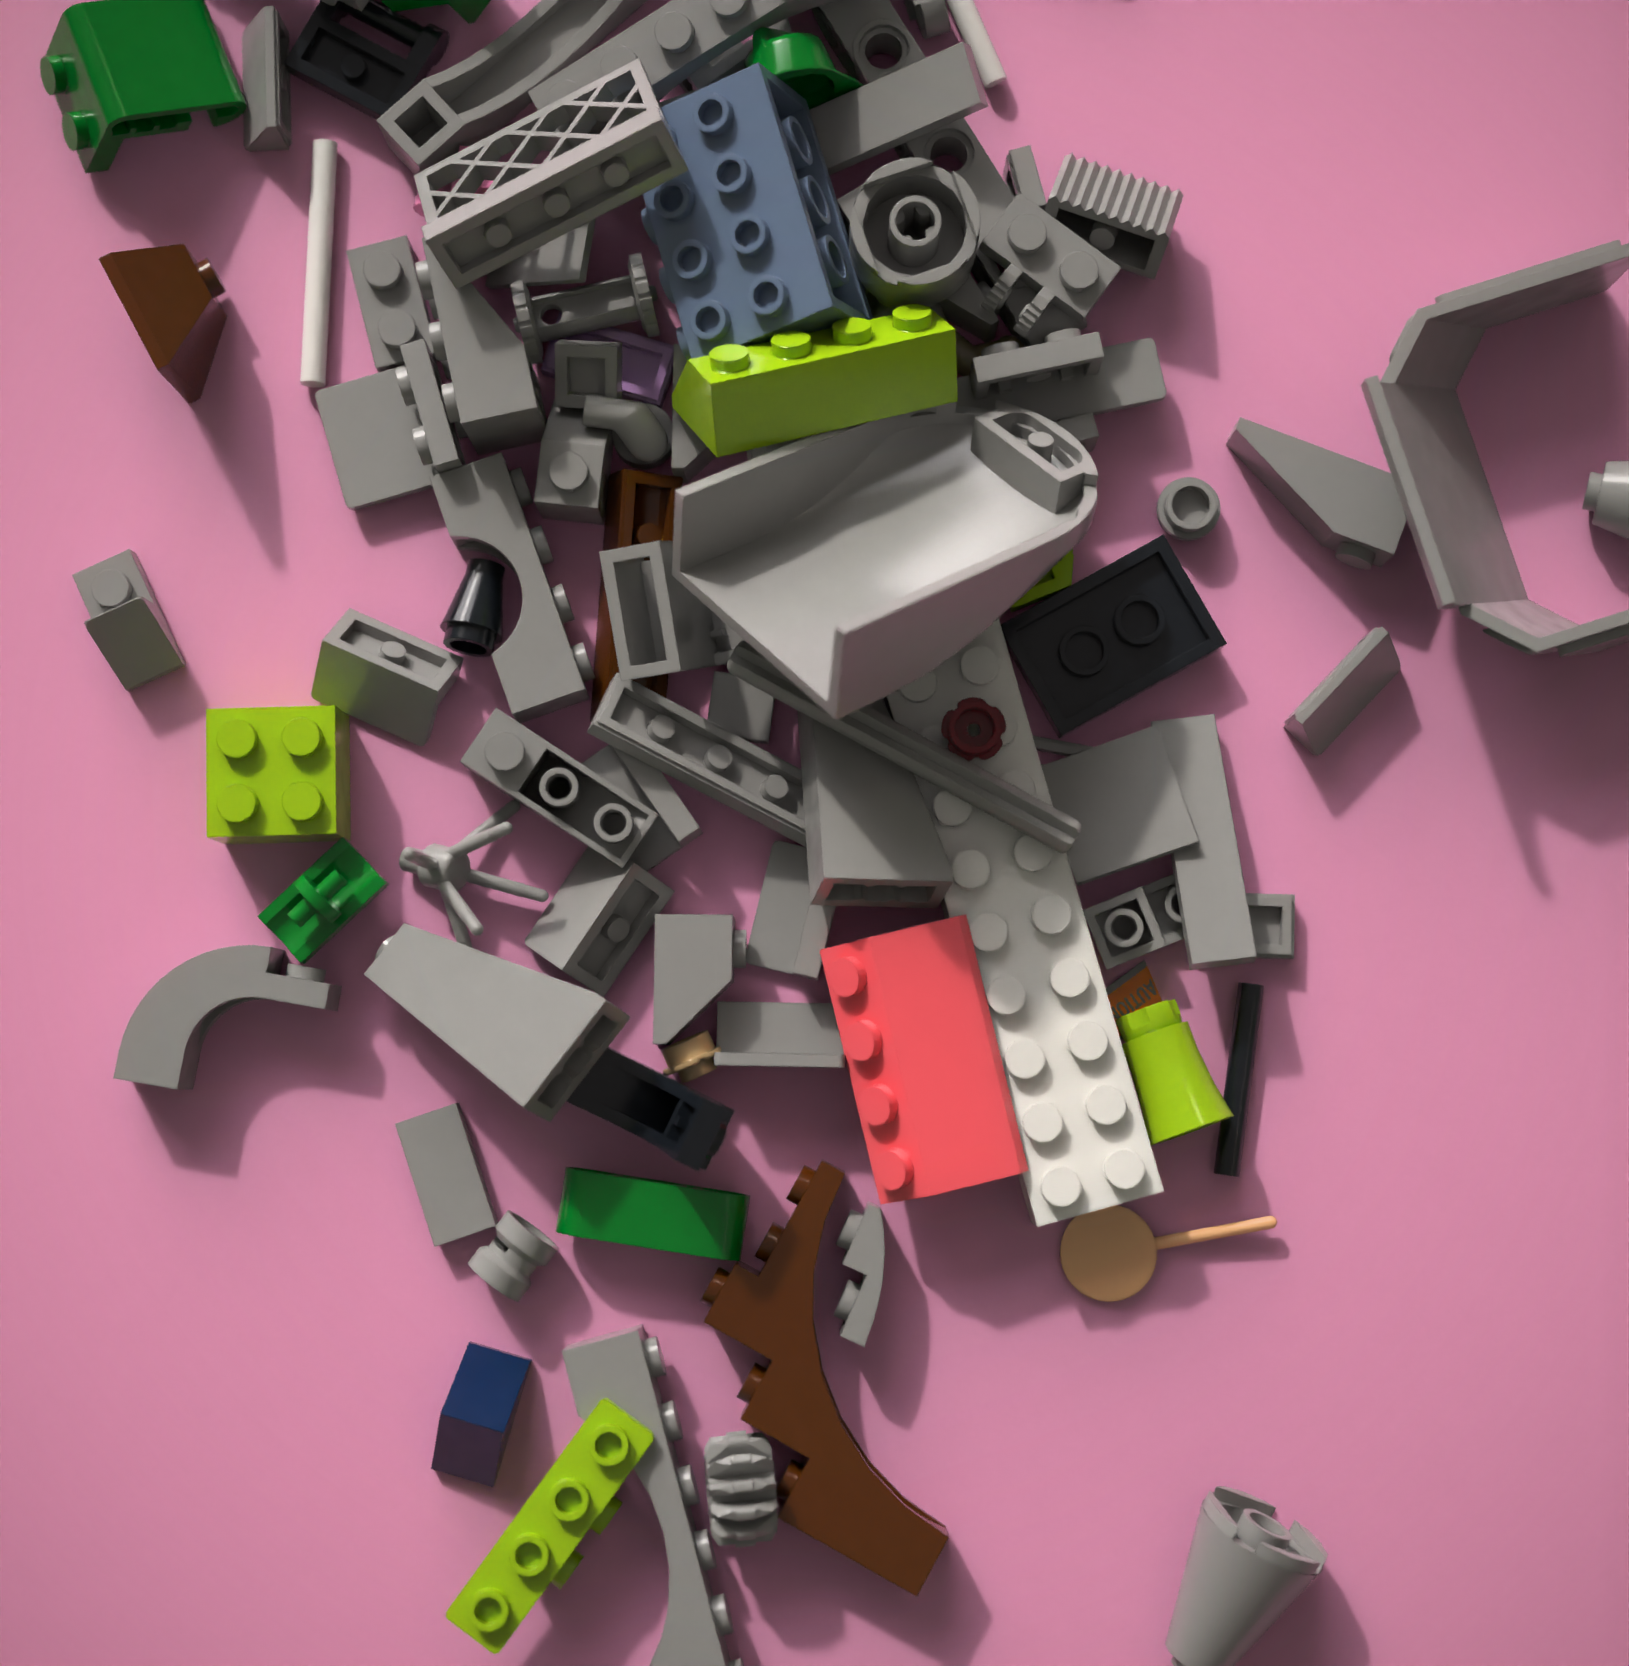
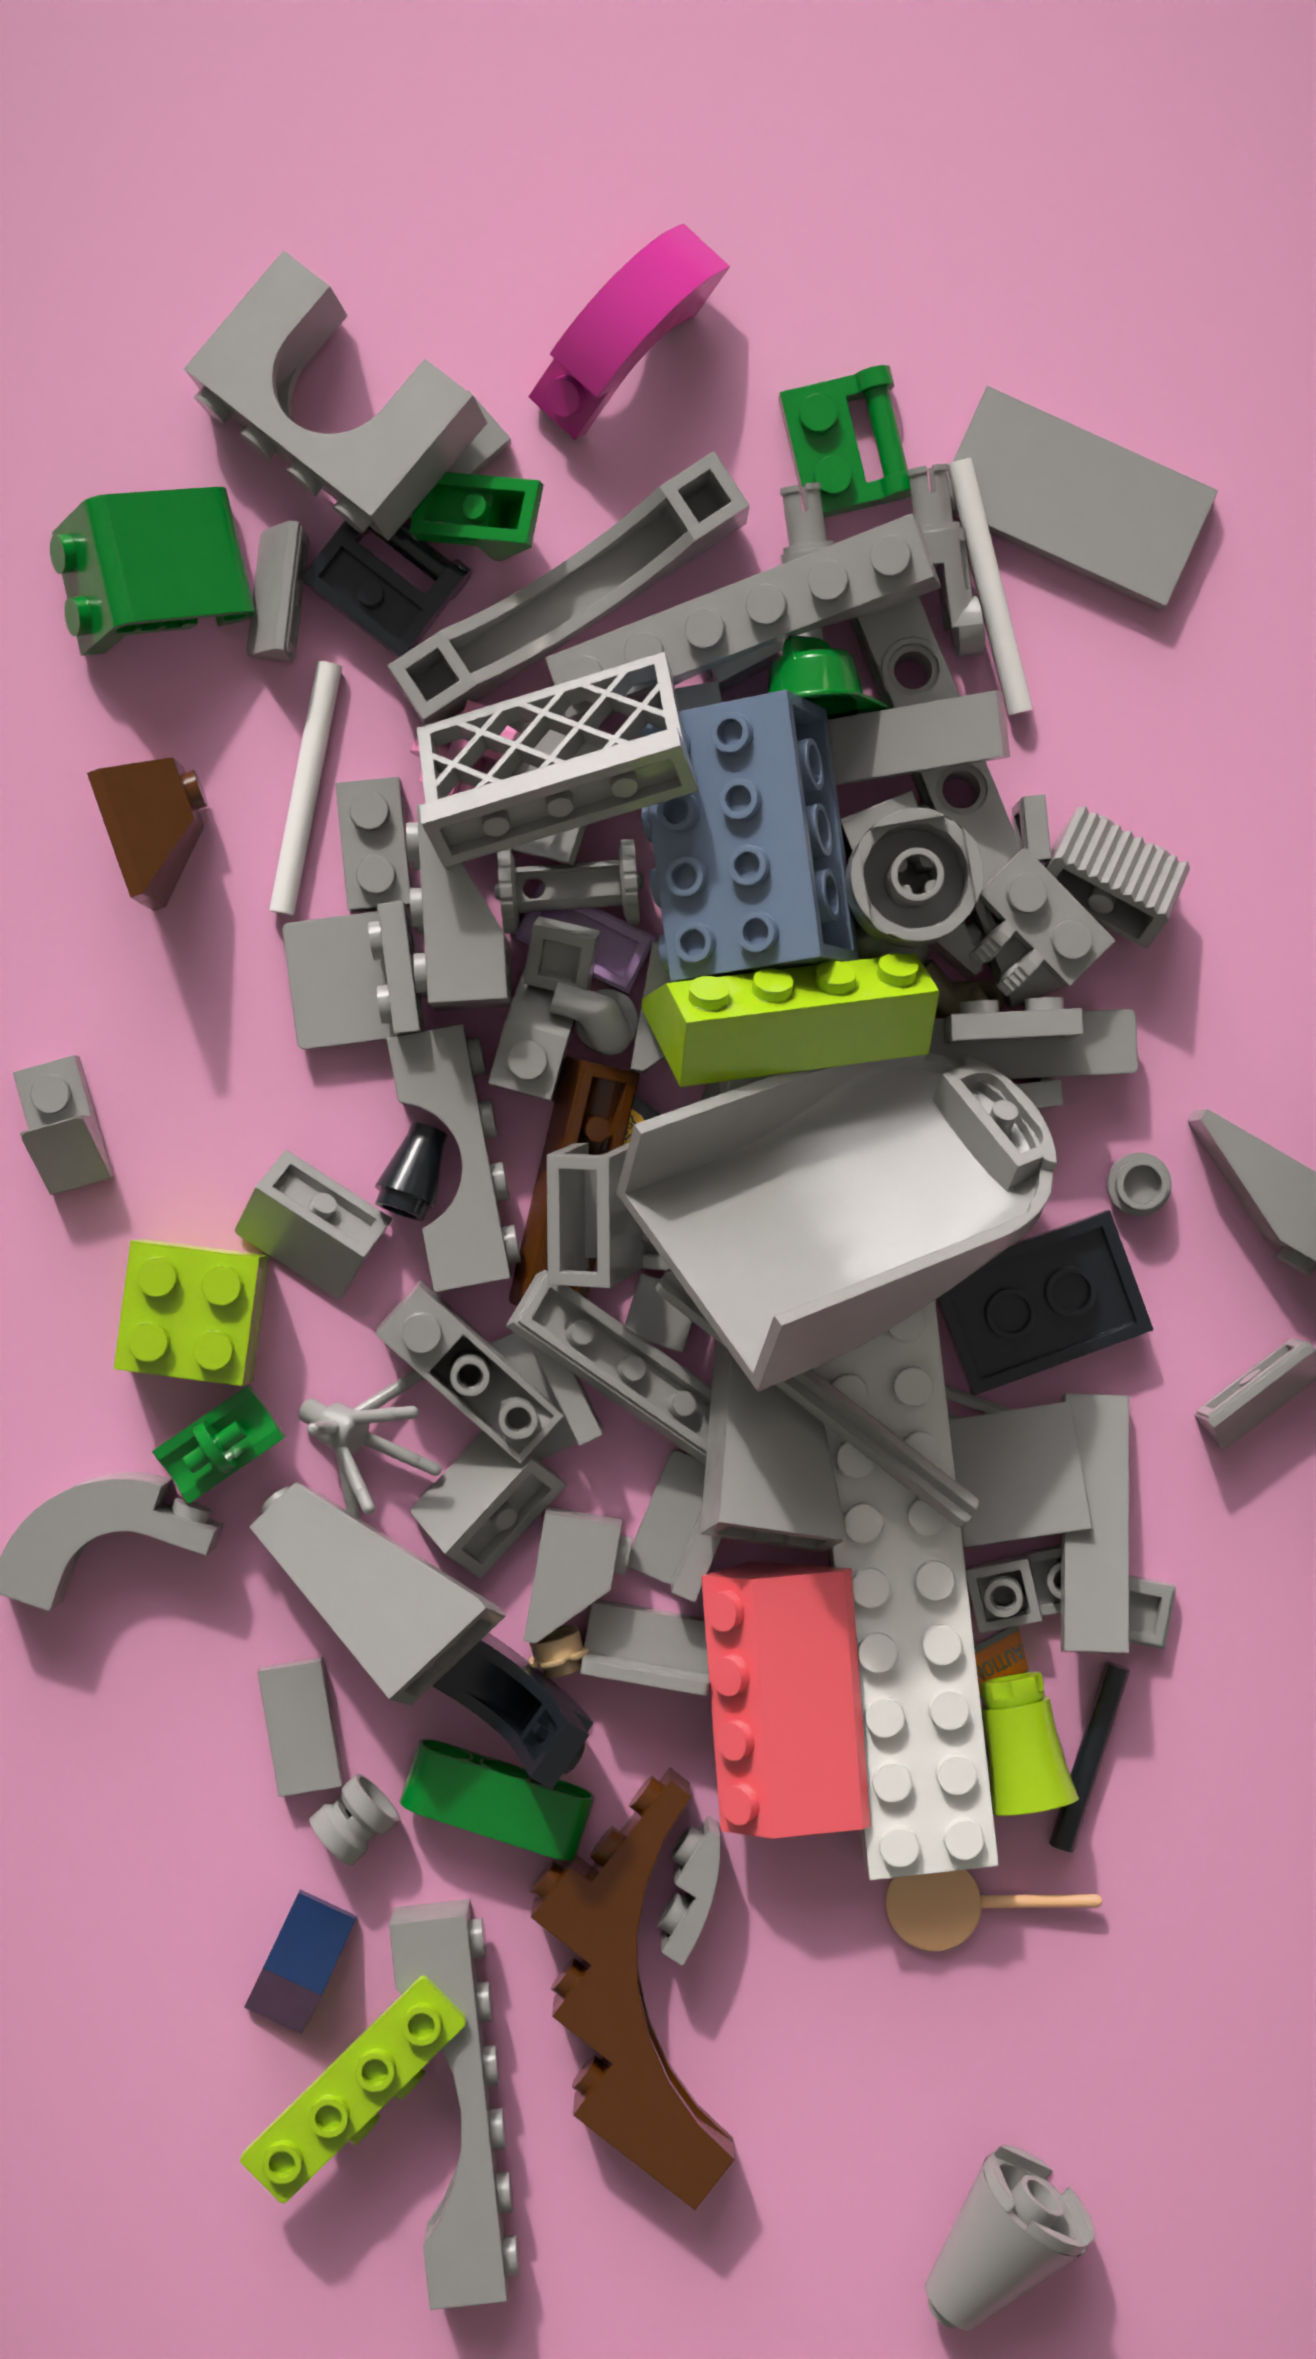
camera: 10 degrees right, 5 degrees up
(740, 1489) = (541, 2080): light grey gear -> none
(977, 712) = (907, 1386): dark red plate -> none

